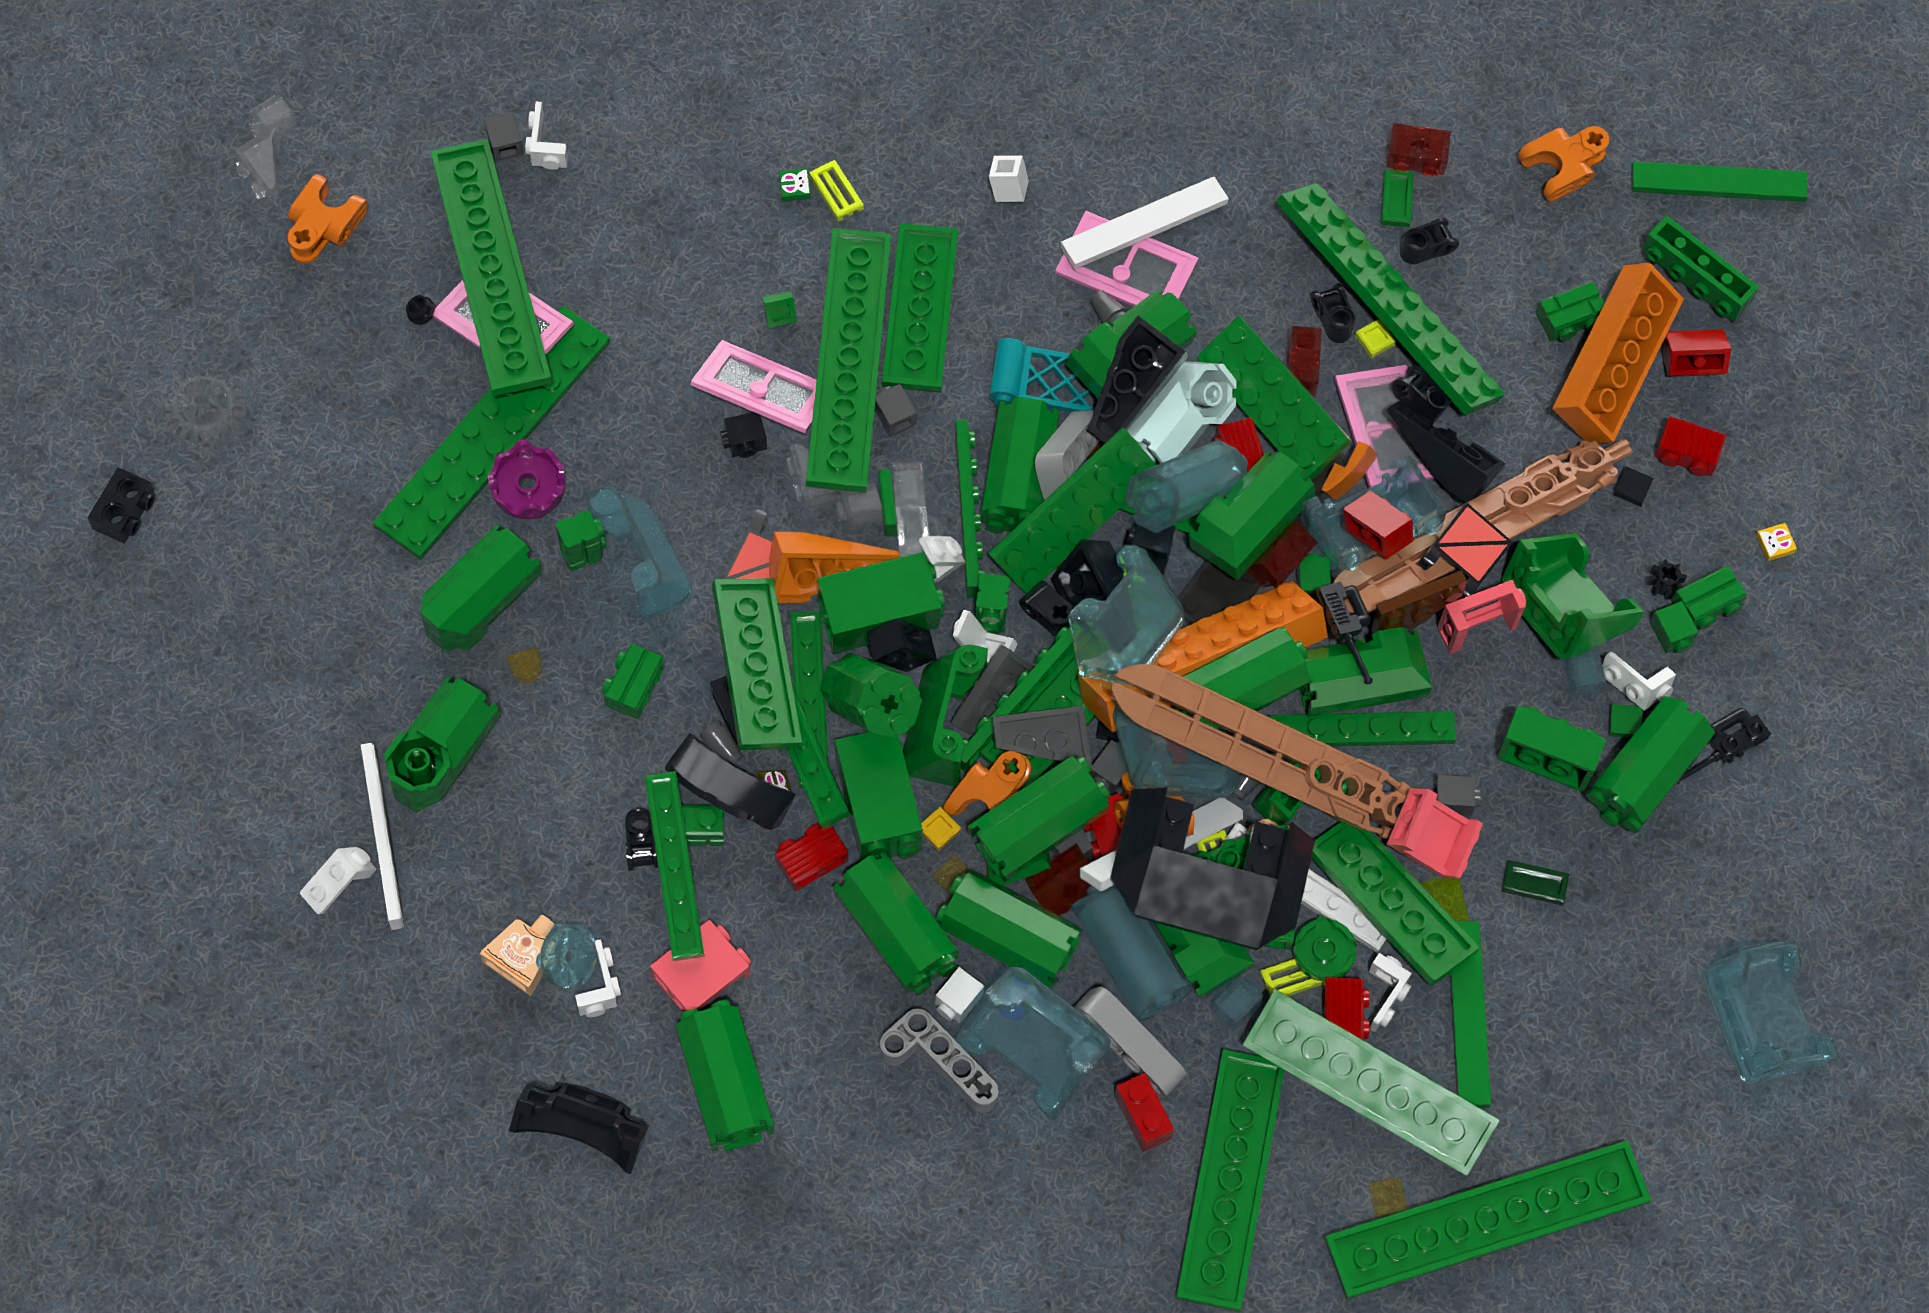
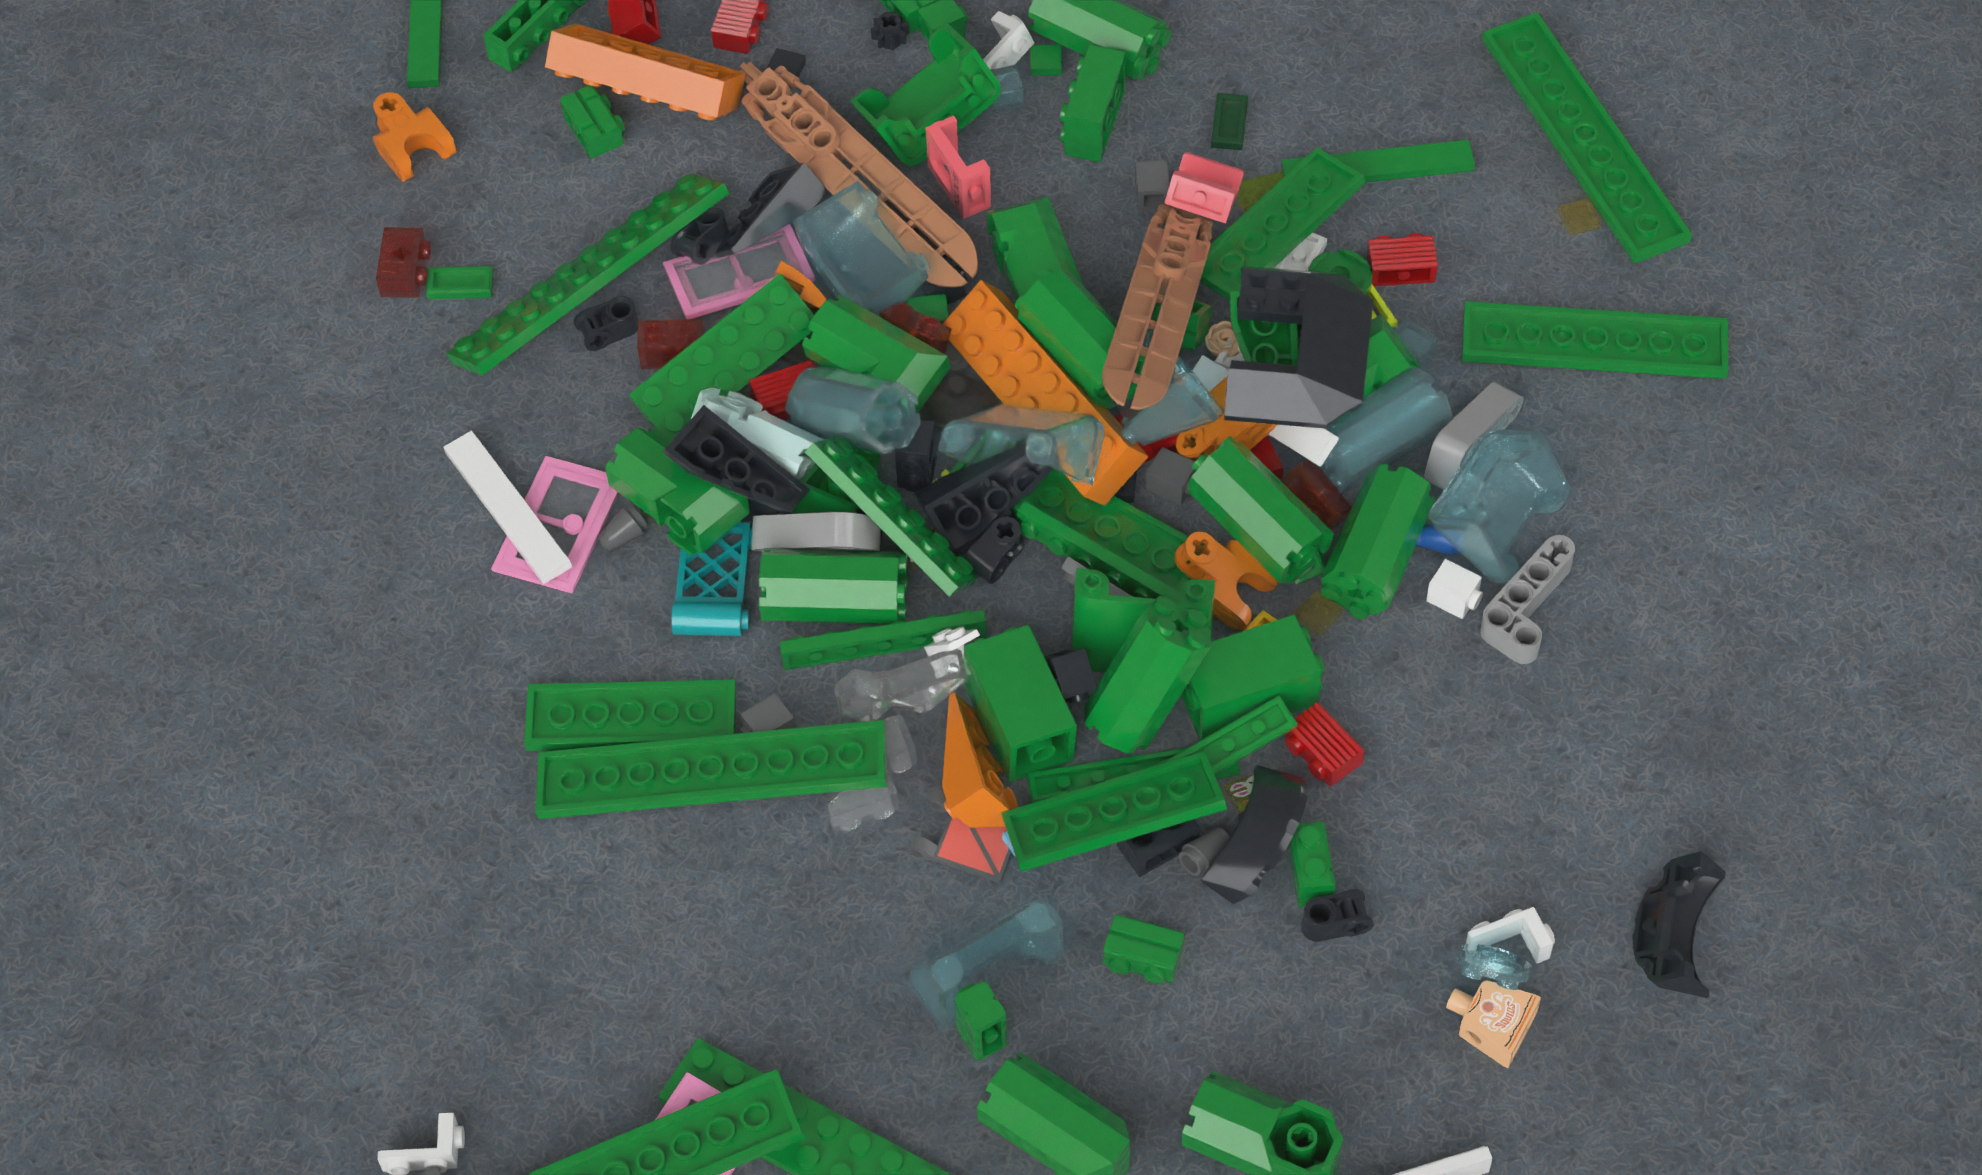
camera: 90 degrees left, 10 degrees down
(525, 665) = (1137, 1072): clear yellow tile -> none
(527, 462) = (899, 1075): magenta plate -> none
(674, 866) = (1373, 859): green tile -> none
(699, 980) = (1479, 833): coral panel -> none
(724, 1076) = (1600, 788): green brick -> none
(744, 435) = (815, 873): black brick -> none
(758, 385) = (751, 861): bright pink door -> none
(779, 309) = (646, 857): green tile -> none
(794, 185) = (473, 866): tile -> none
(847, 209) = (480, 827): neon yellow tile -> none
(887, 502) = (908, 708): green tile -> none
(897, 923) = (1393, 645): green brick -> none
(970, 632) = (1050, 600): white bracket -> none
(992, 602) = (1005, 595): green brick -> none
(1008, 178) = (462, 636): white brick -> none
(1044, 734) = (1151, 530): dark grey wing -> none
(1144, 1112) = (1548, 410): red brick -> none
(1344, 625) = (994, 264): black piece -> none
(1371, 1082) = (1474, 226): plate -> none
(1375, 338) = (634, 287): neon yellow tile -> none
(1375, 728) = (1085, 244): green plate -> none
(1378, 524) = (873, 246): brick -> none
(1392, 973) = (1370, 218): white bracket -> none
(1418, 604) = (968, 205): reddish brown plate -> none
(1433, 241) = (515, 249): black piece -> none
(1468, 545) = (893, 171): coral flag -> none

